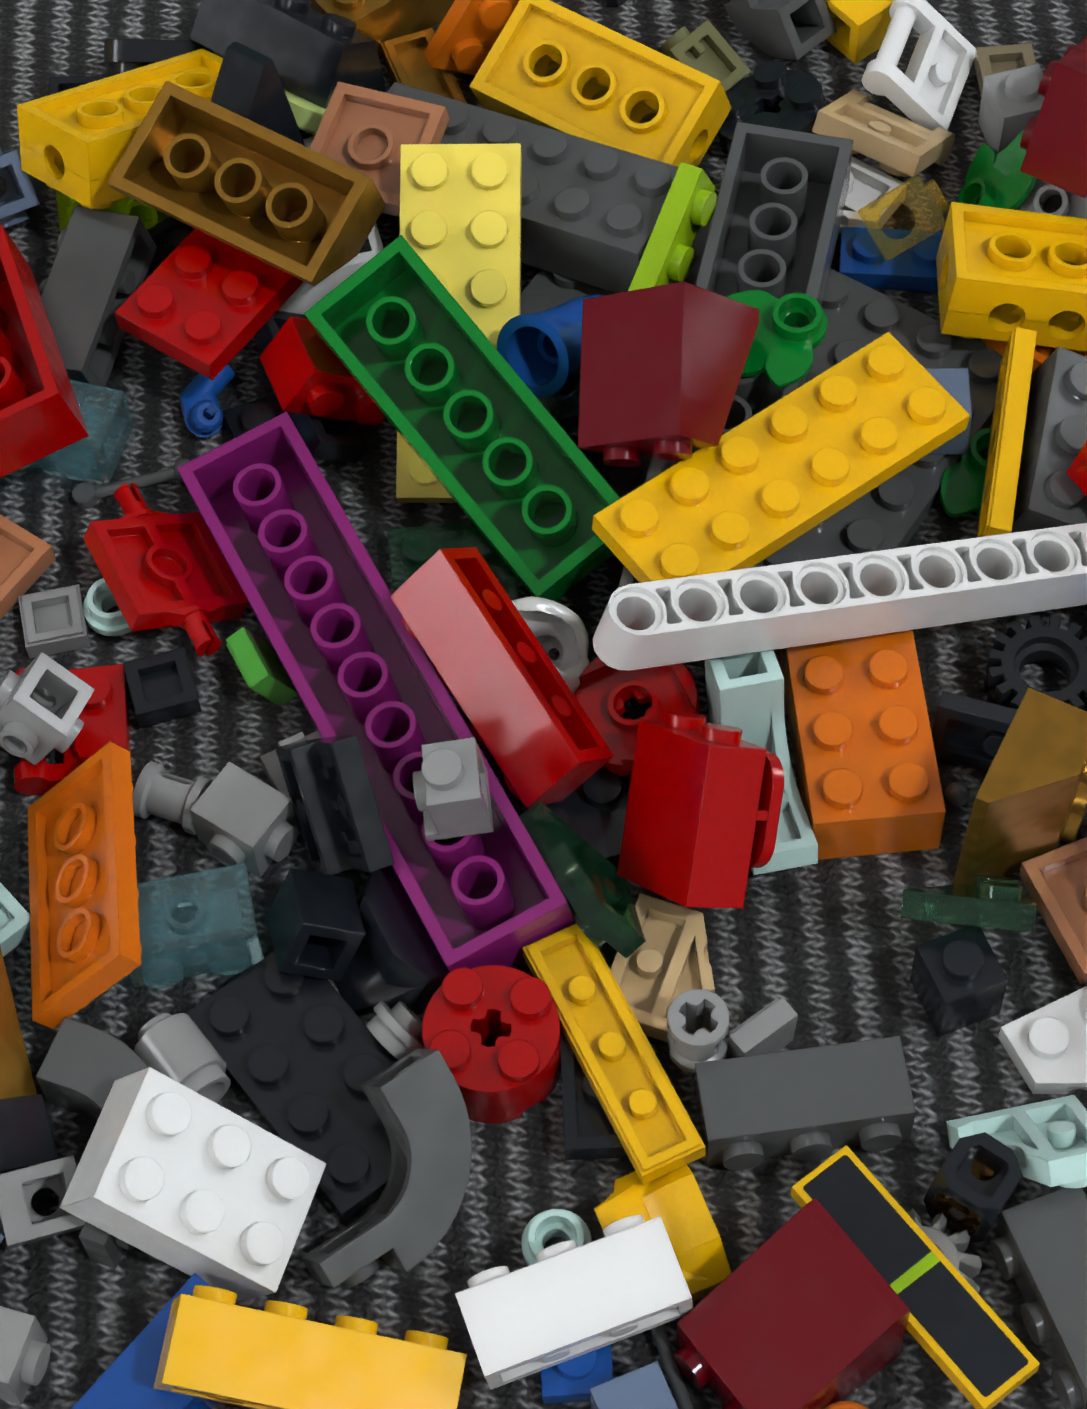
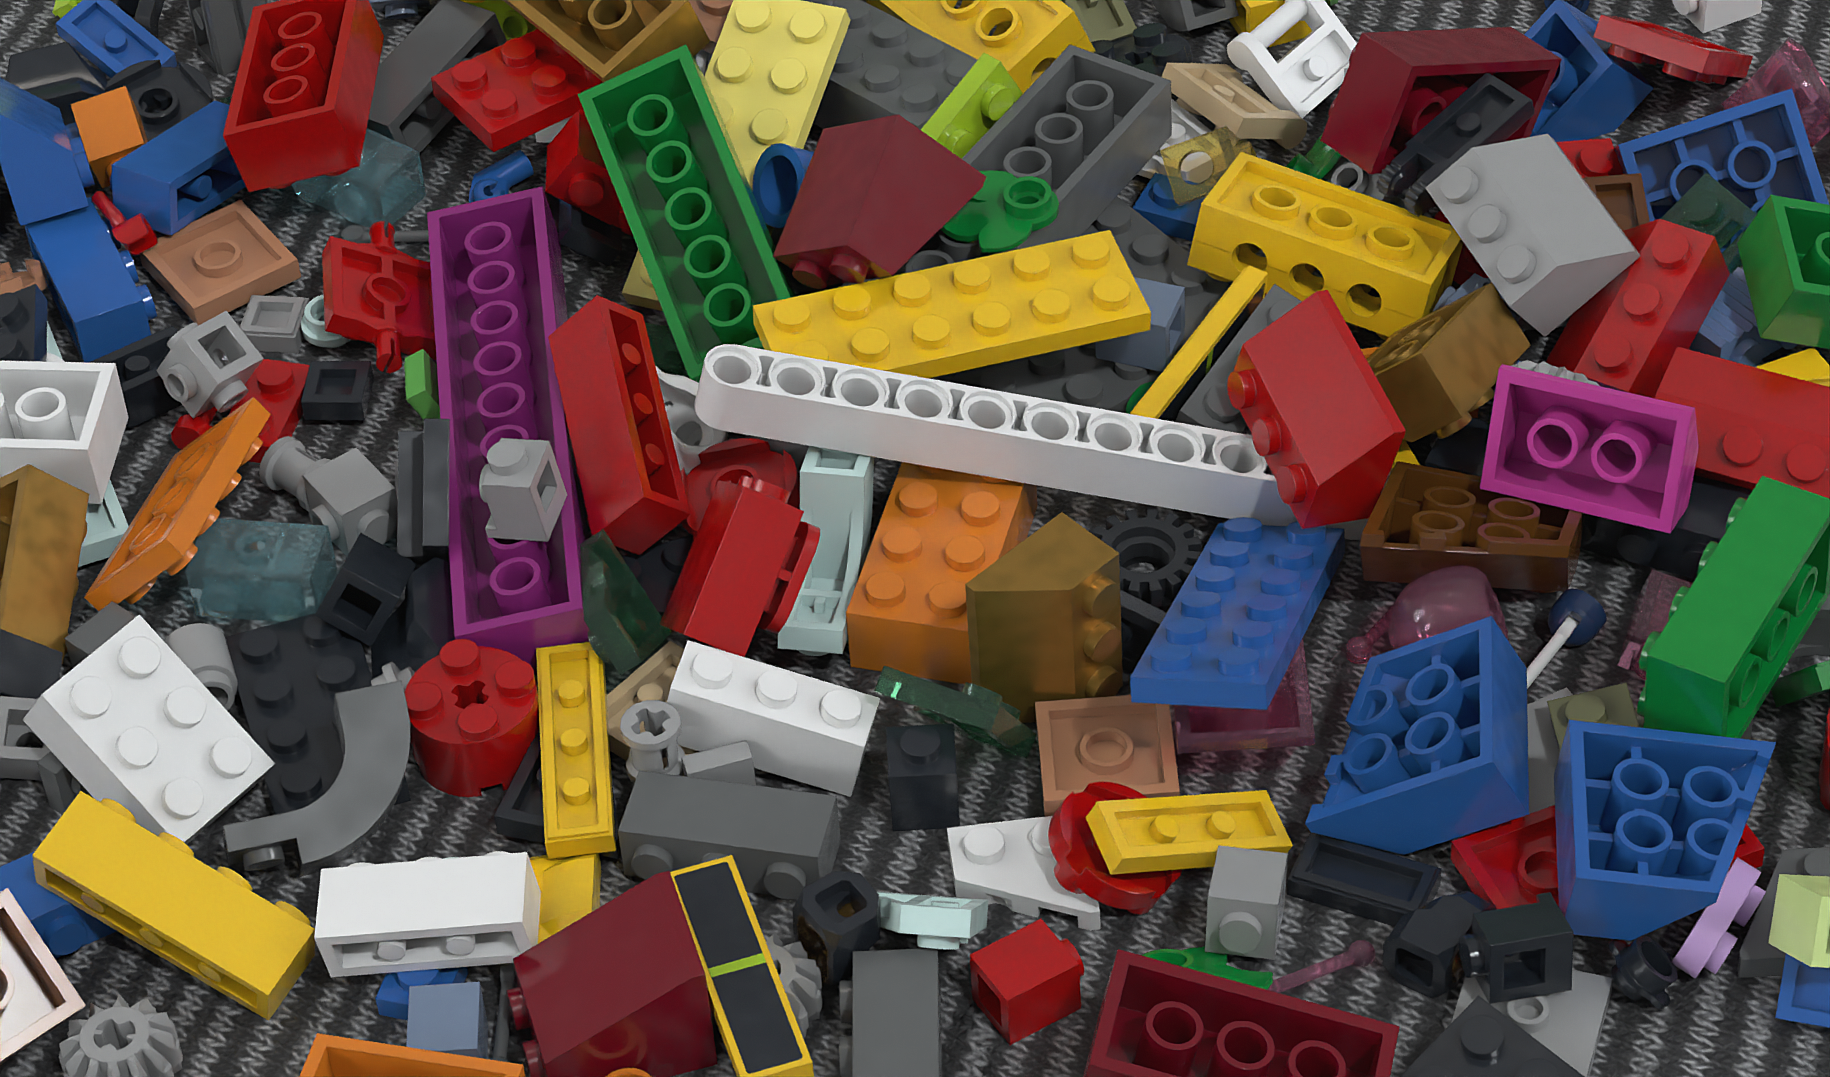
camera: 20 degrees right, 15 degrees down
(804, 958) = (789, 719): none -> white brick

